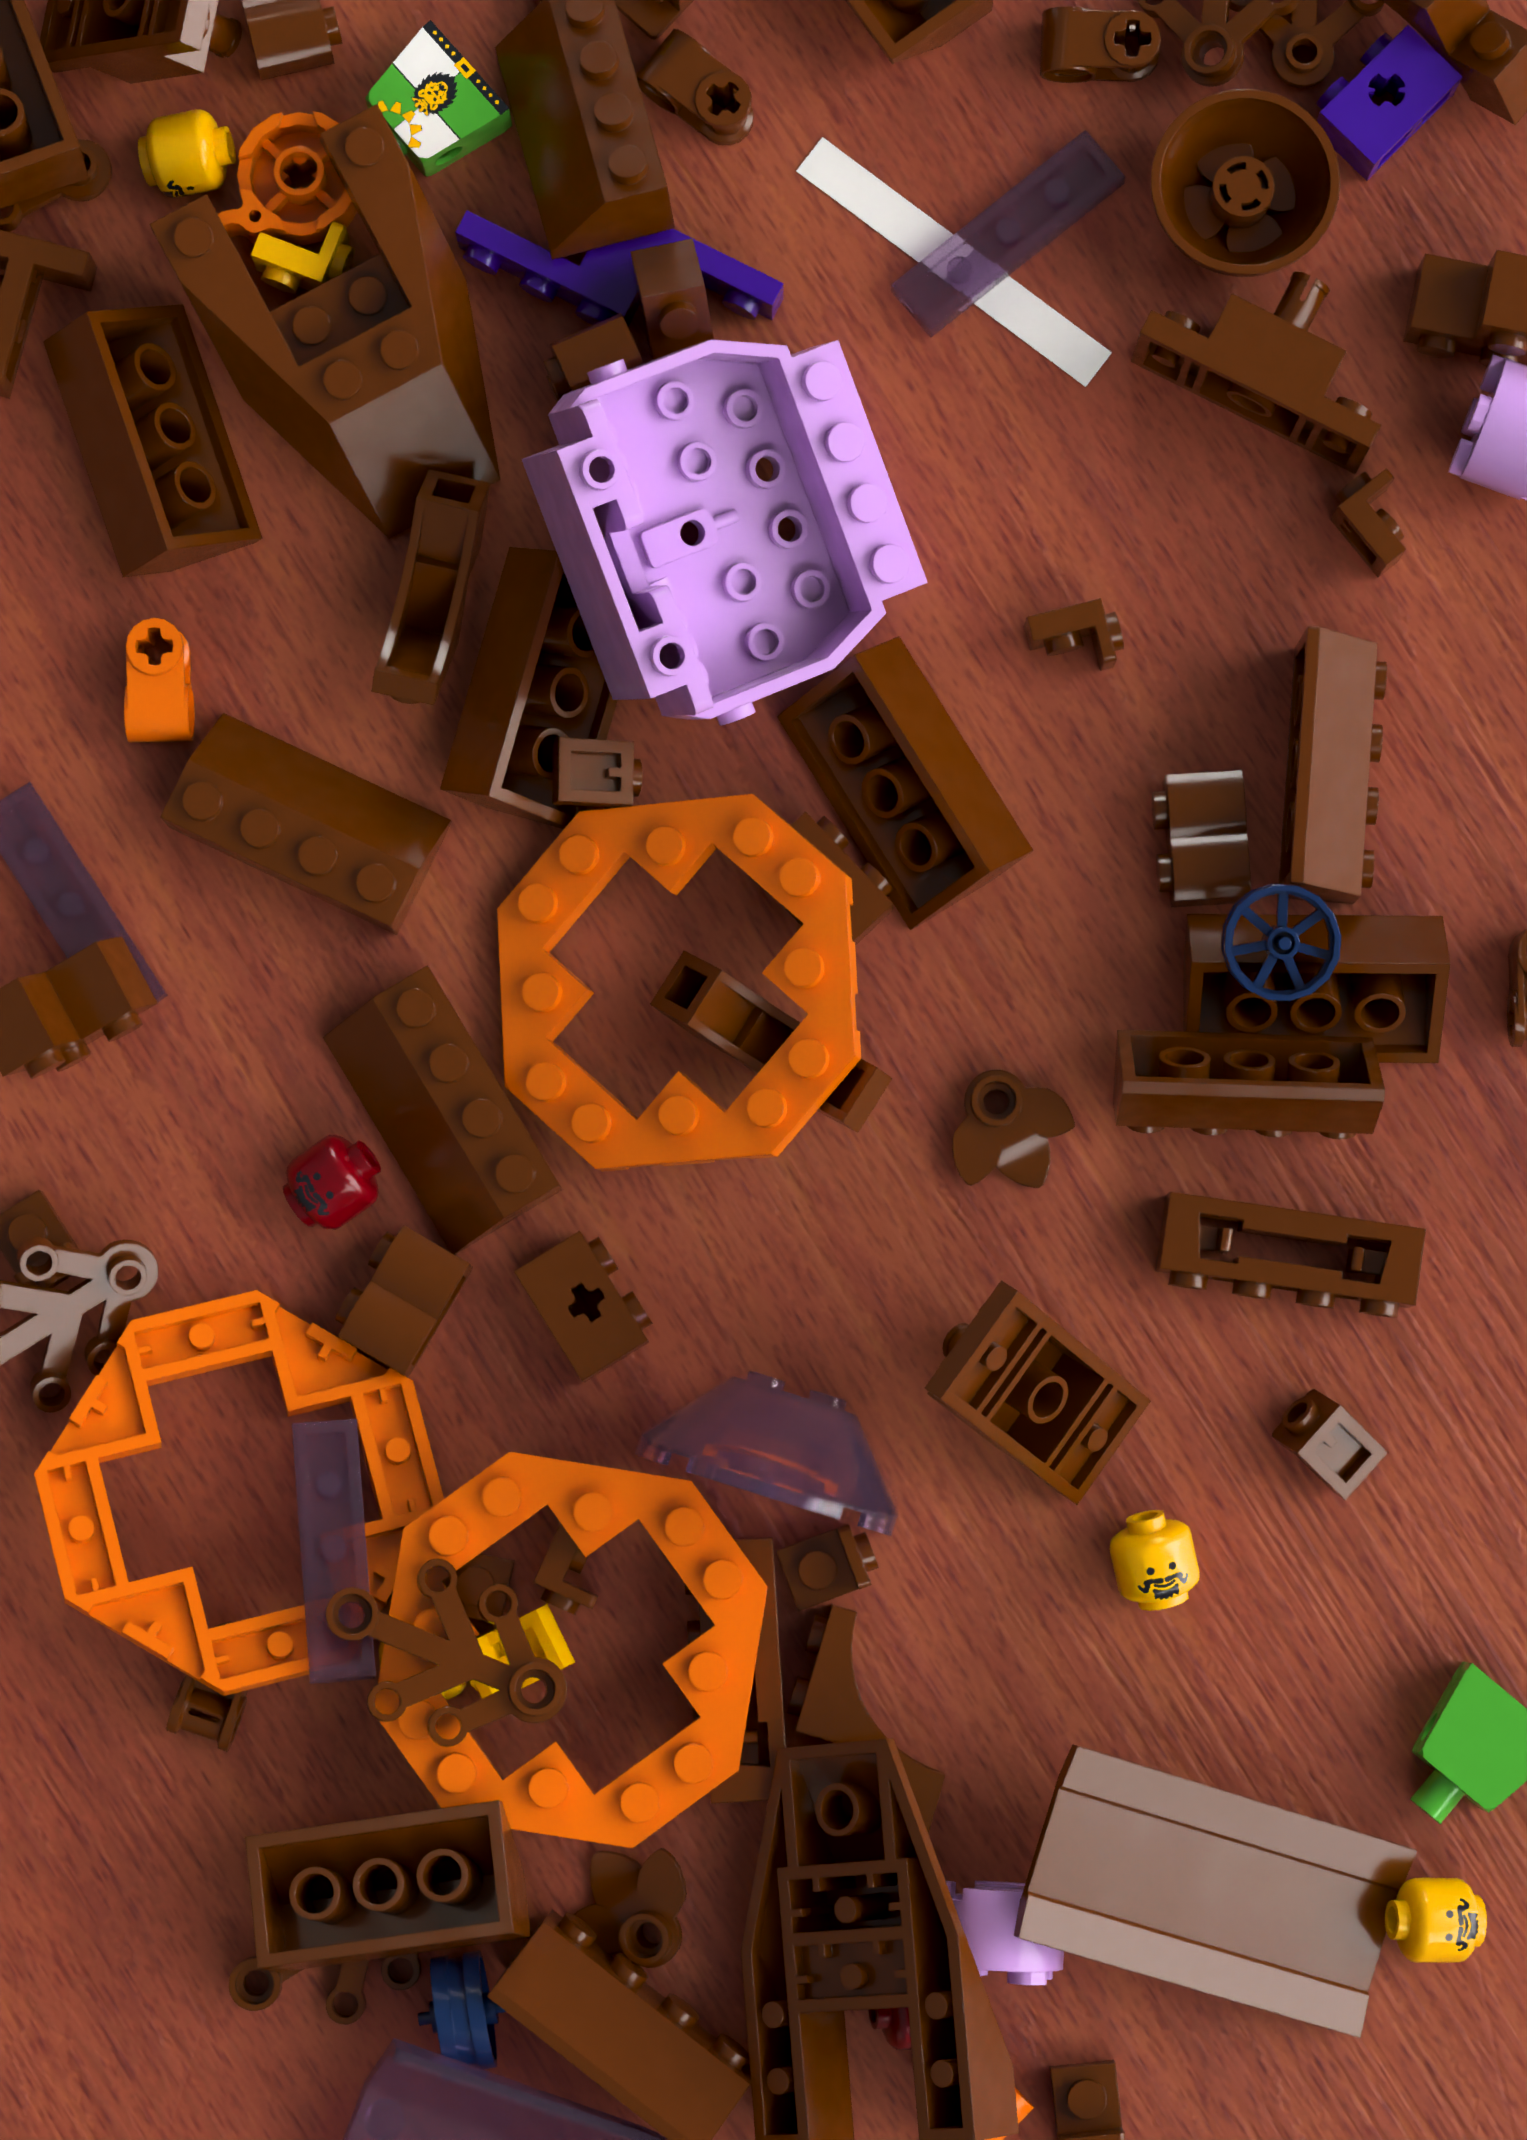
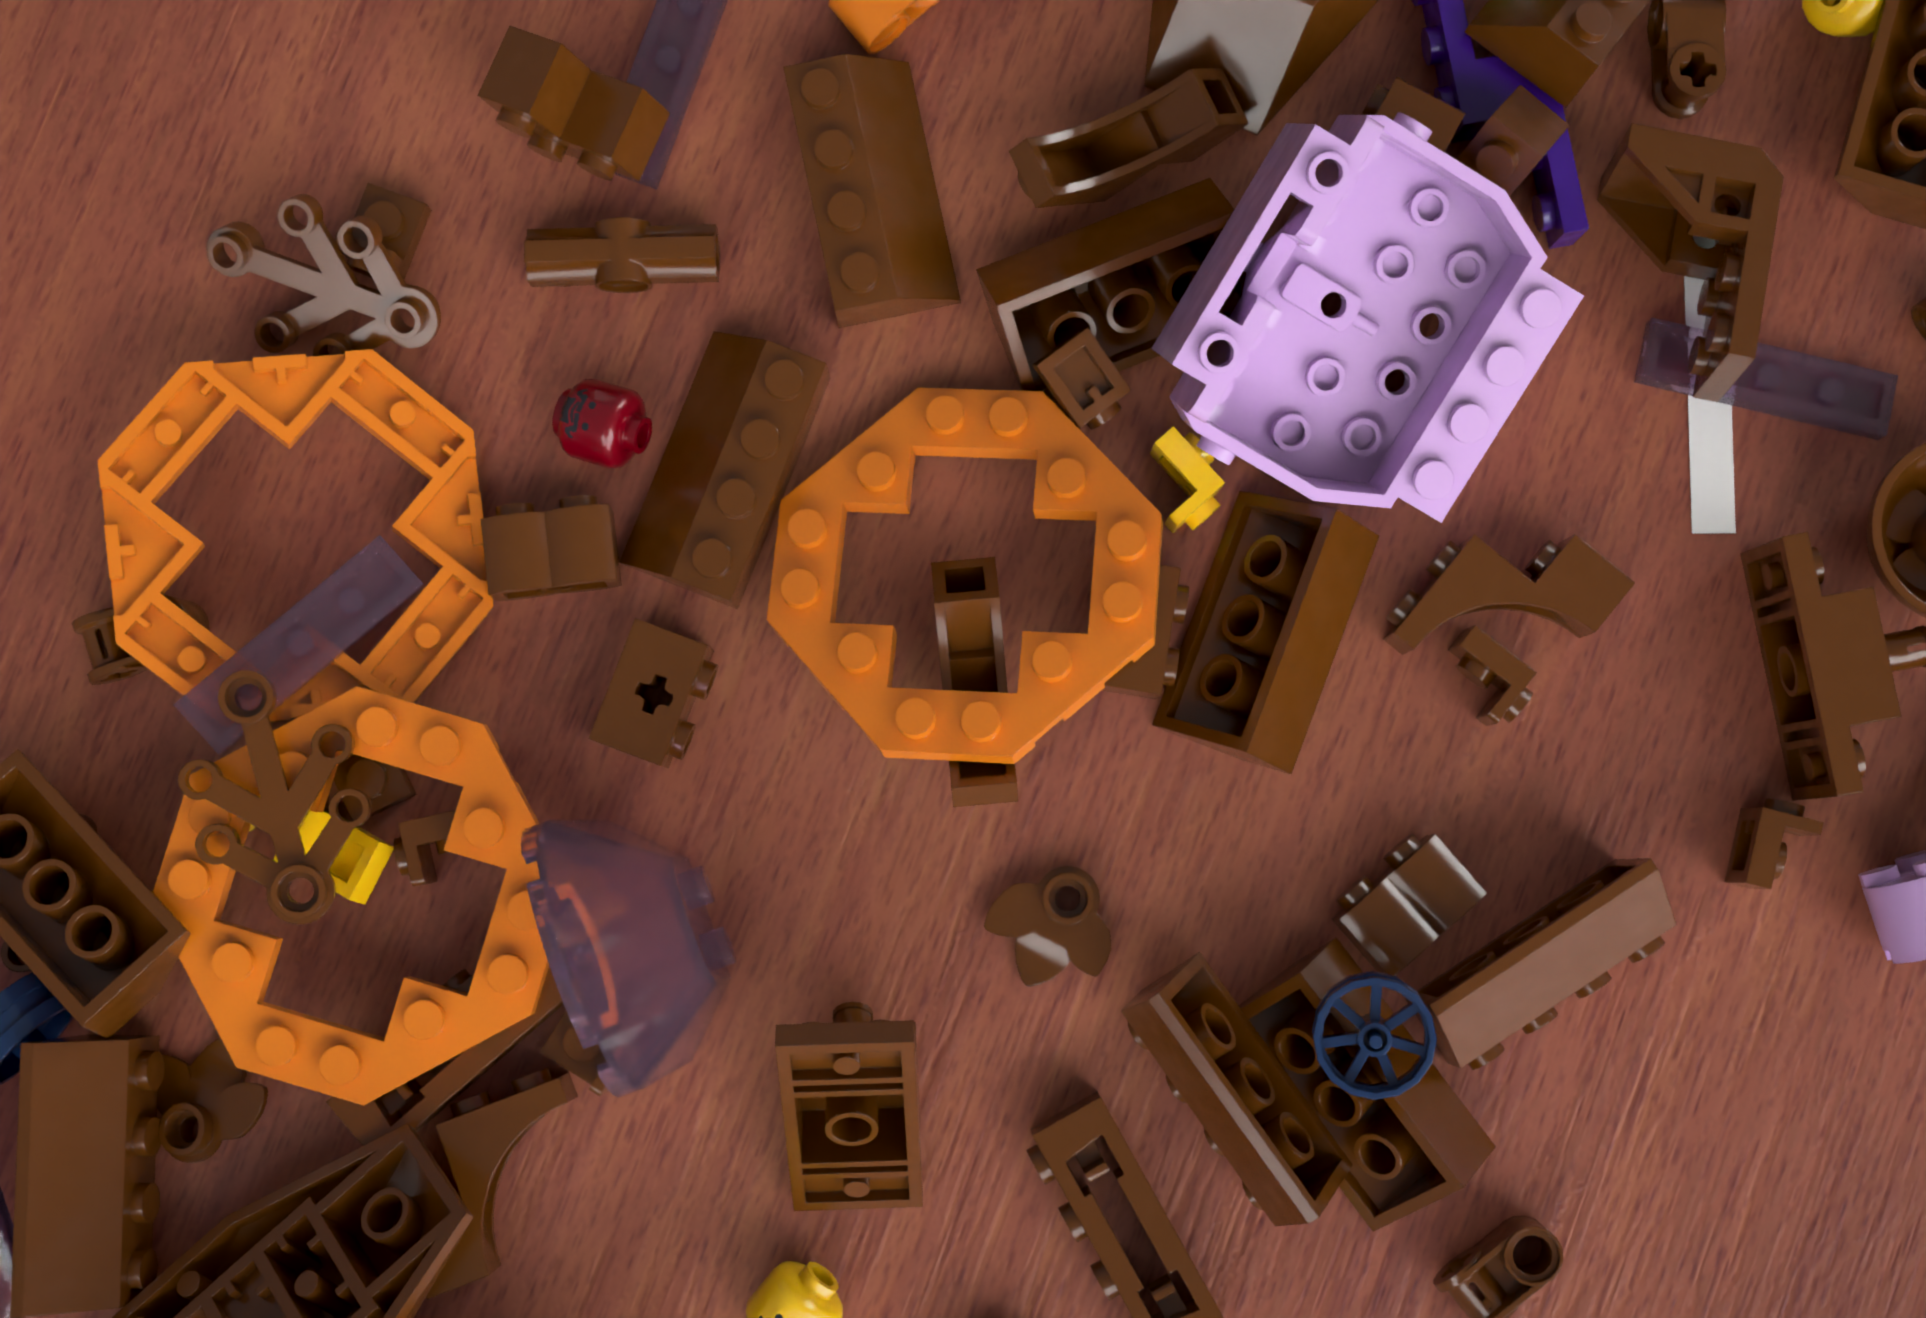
camera: 50 degrees right, 0 degrees up
(206, 1062) = (622, 255): none -> reddish brown piece
(736, 744) = (1192, 472): none -> yellow bracket
(822, 178) = (1687, 185): none -> reddish brown bracket
(1051, 519) = (1567, 586): none -> reddish brown arch

